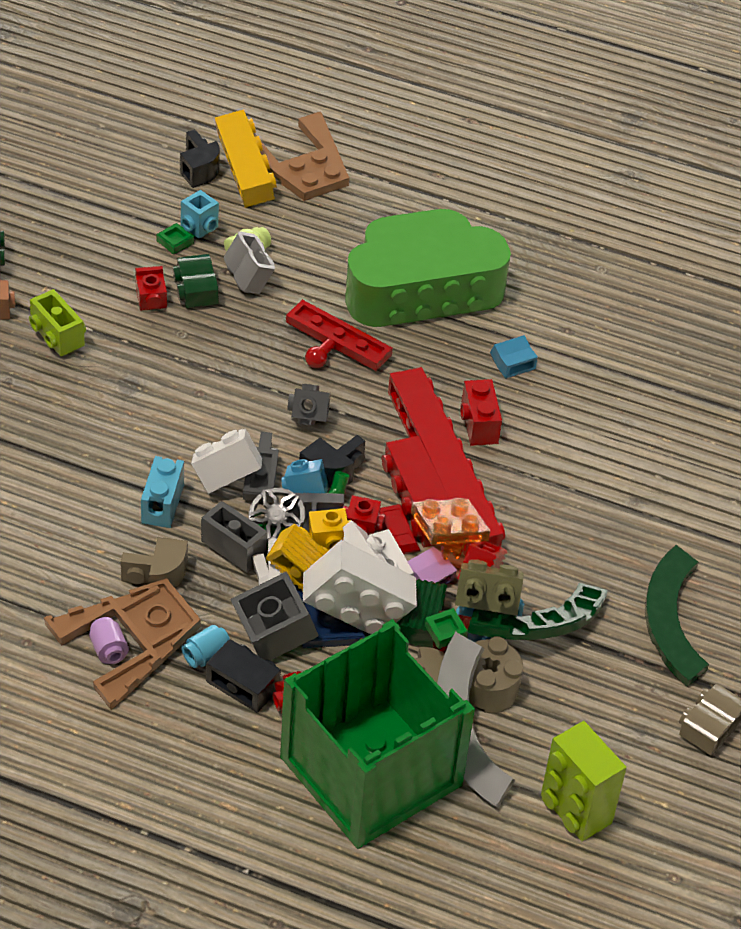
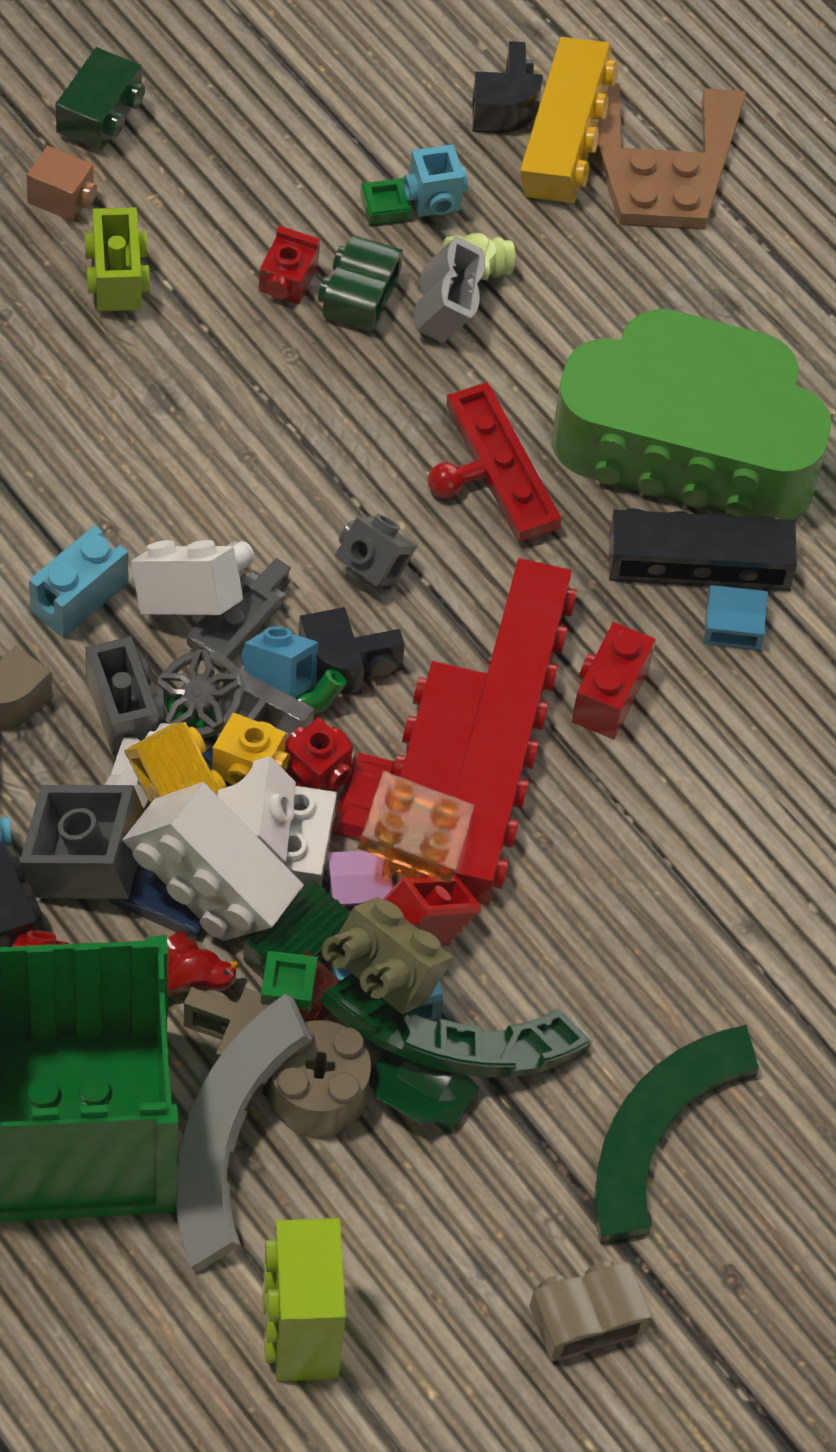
camera: 30 degrees right, 10 degrees up
(473, 331) = (702, 549): none -> black brick
(545, 654) = (423, 1091): none -> dark green slope

